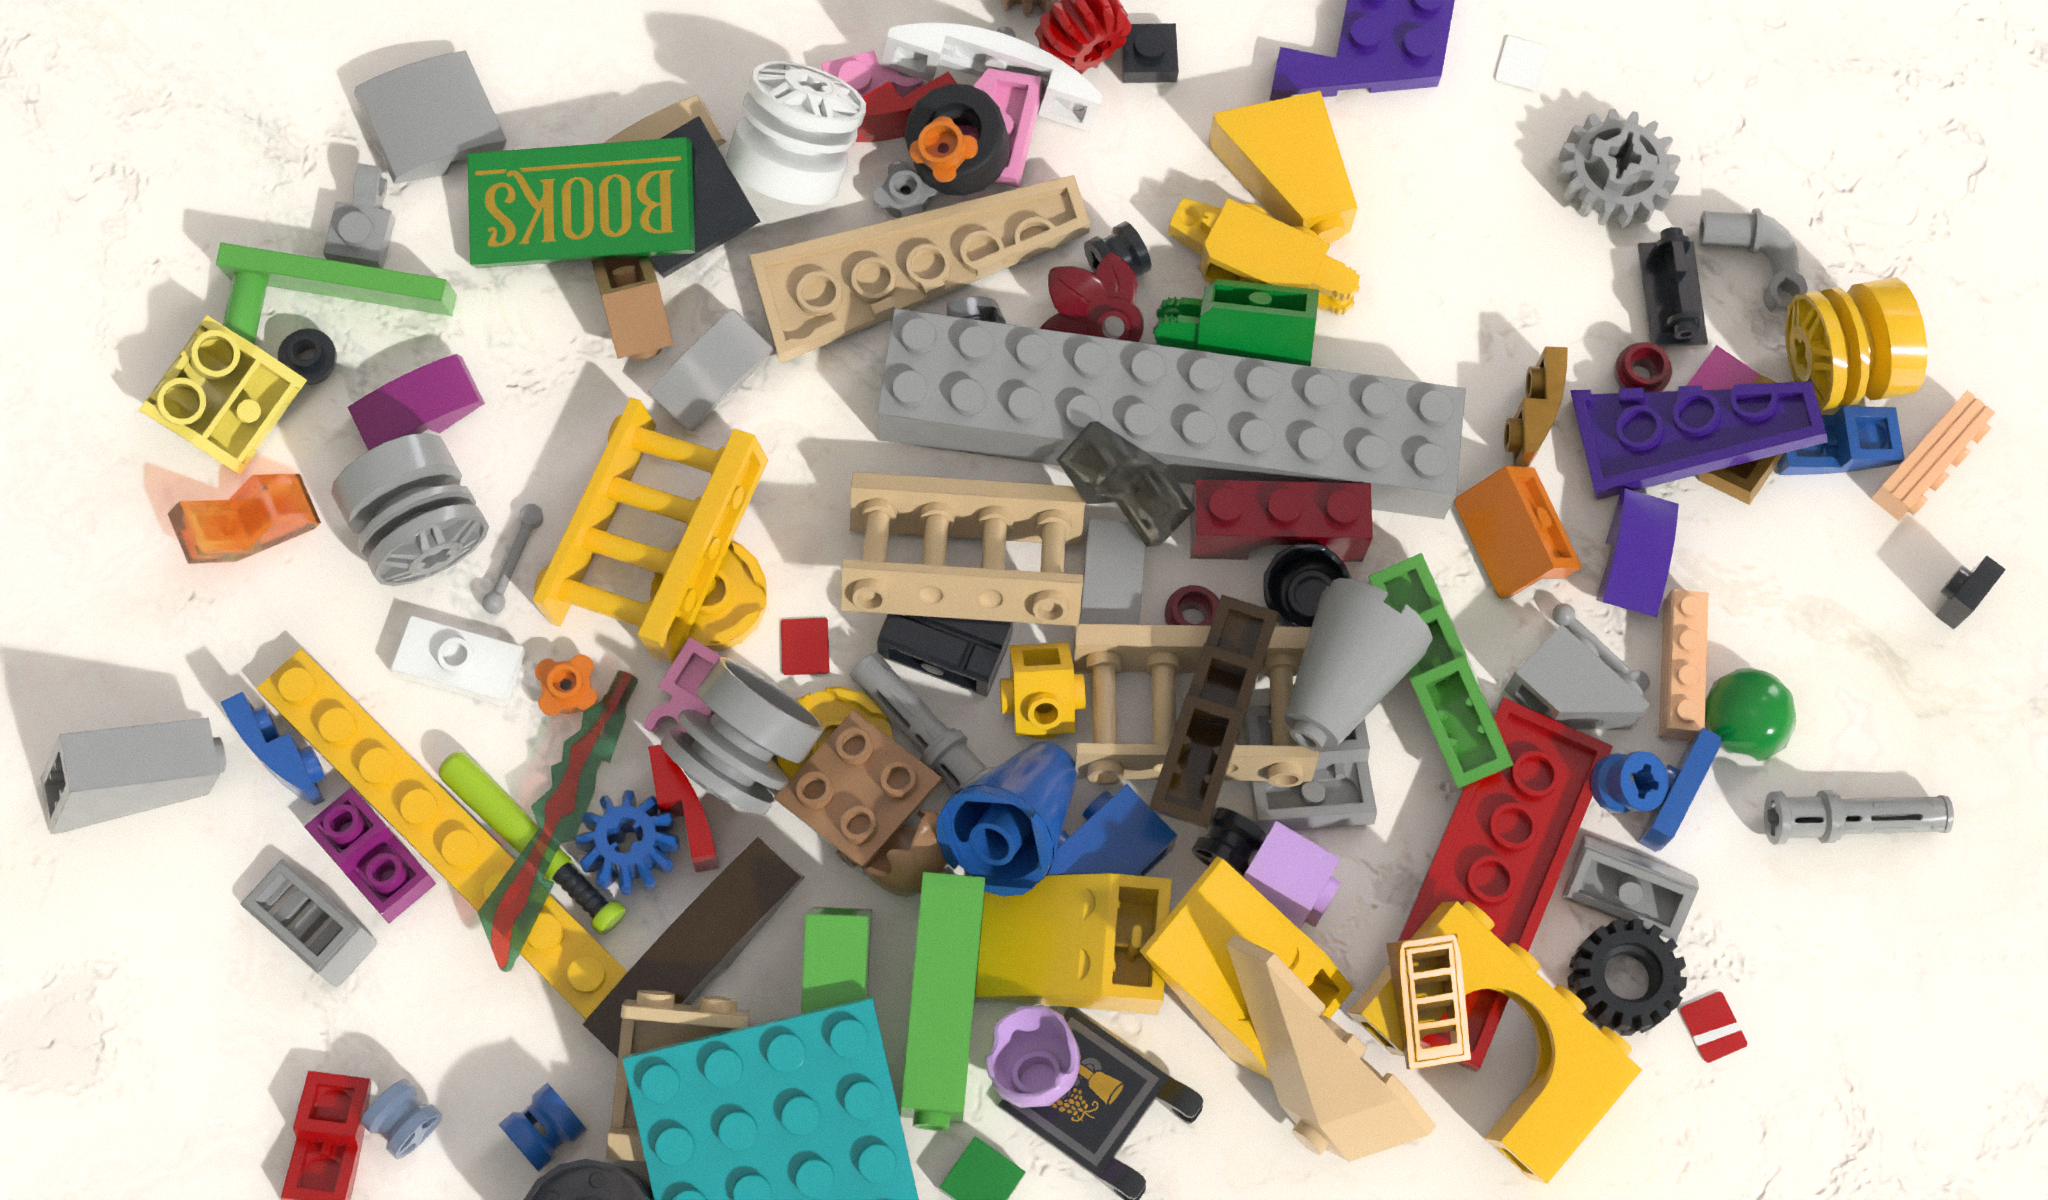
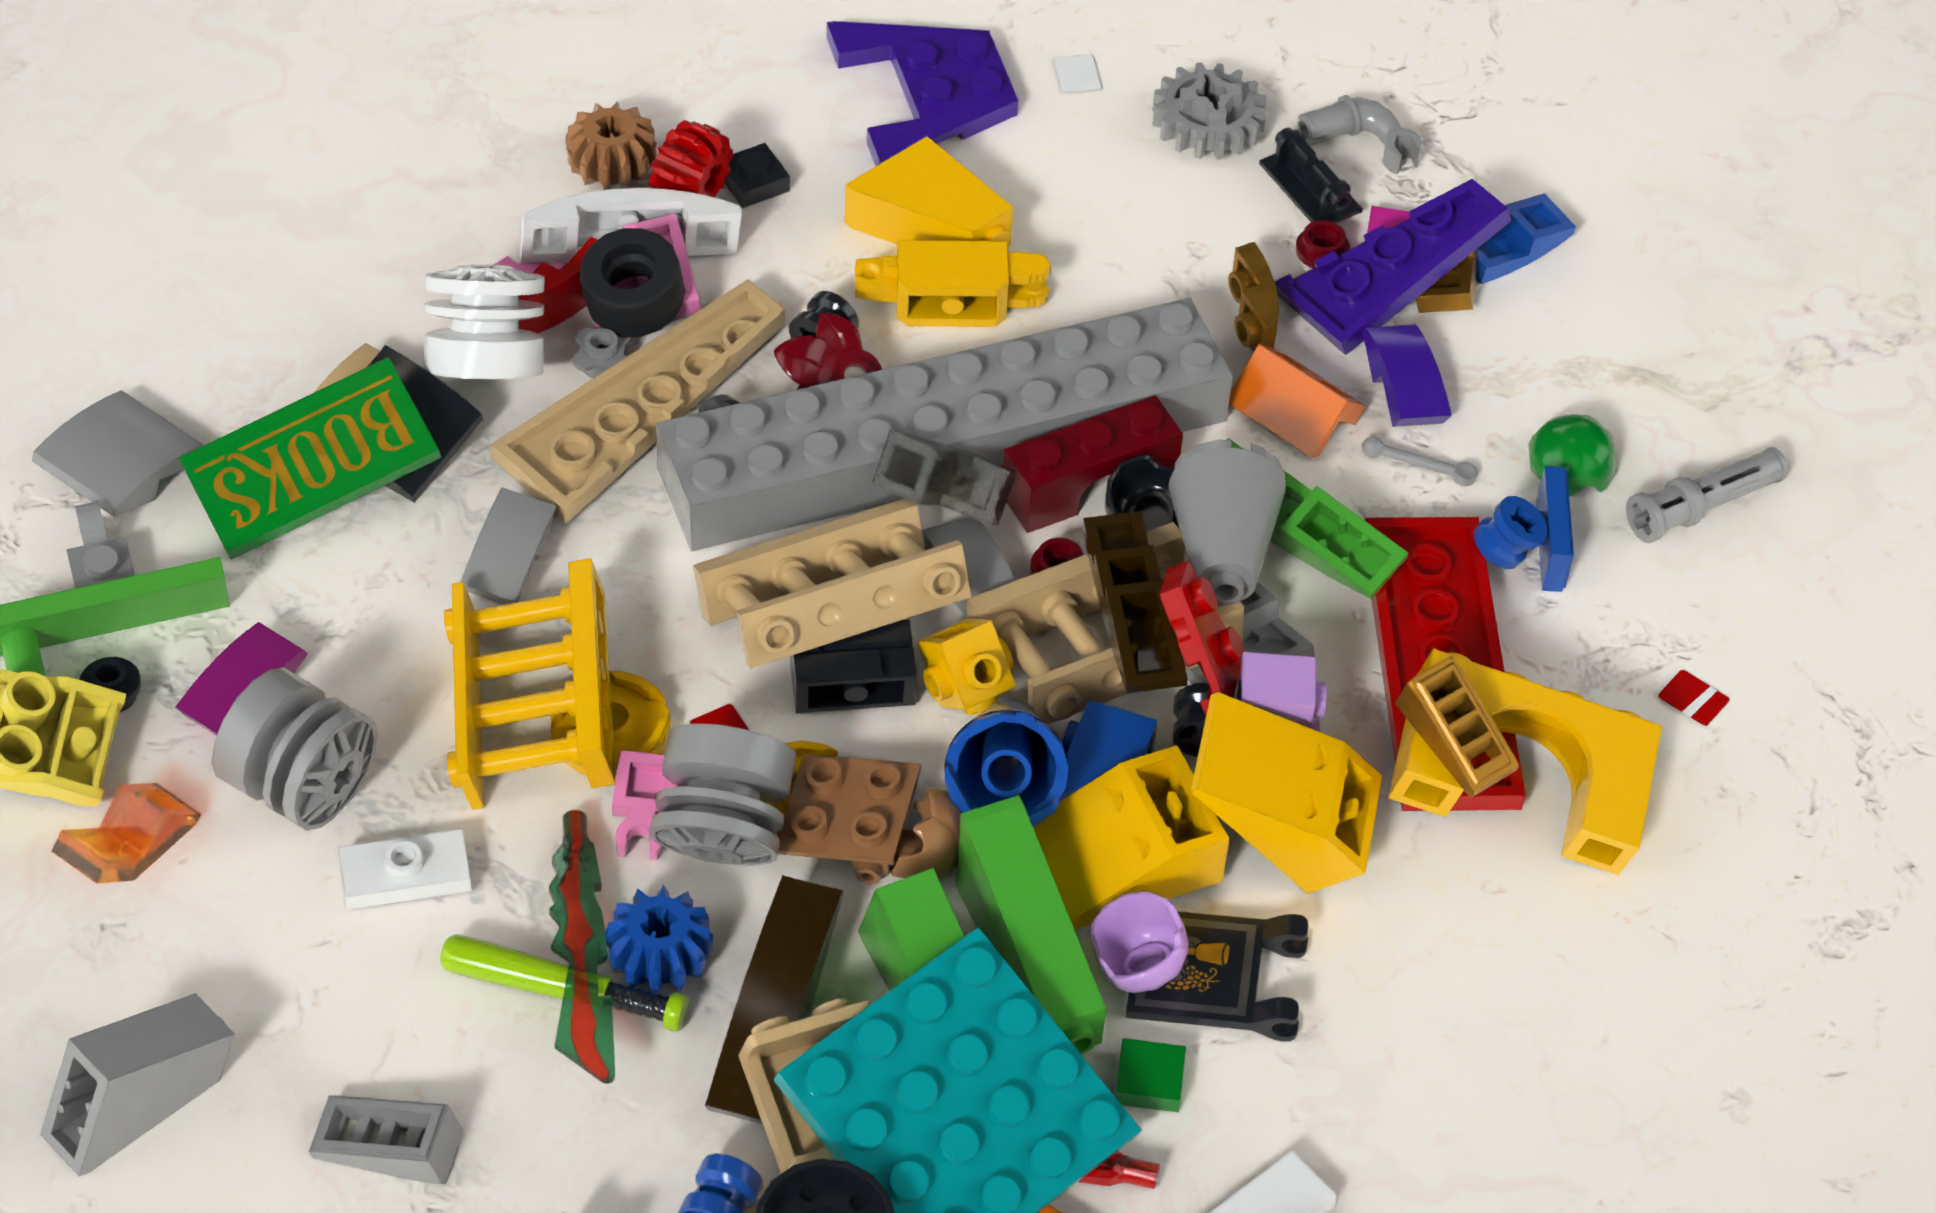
camera: 25 degrees left, 20 degrees down
(281, 756) = (280, 1012): blue slope -> none
(370, 855) = (406, 1058): magenta slope -> none
(433, 824) = (460, 1009): yellow plate -> none
(531, 518) = (404, 733): light grey hinge -> none
(569, 701) = (522, 859): orange plate -> none
(633, 306) = (405, 522): medium nougat slope -> none
(677, 796) = (726, 905): red slope -> none
(939, 133) = (626, 267): orange plate -> none
(941, 748) = (906, 746): light grey pin -> none
(1242, 321) = (970, 320): green hinge -> none
(1252, 782) = (1200, 631): none -> red wing
(1318, 1066) = (1402, 831): tan wedge -> none
(1575, 686) = (1422, 484): light grey slope -> none
(1630, 886) = (1559, 621): light grey slope -> none
(1656, 957) = (1610, 659): black tyre -> none
(1683, 664) = (1495, 440): light nougat piece -> none
(1857, 342) = (1491, 138): yellow wheel -> none
(1938, 450) = (1595, 220): light nougat piece -> none
(1967, 590) = (1687, 297): black plate -> none

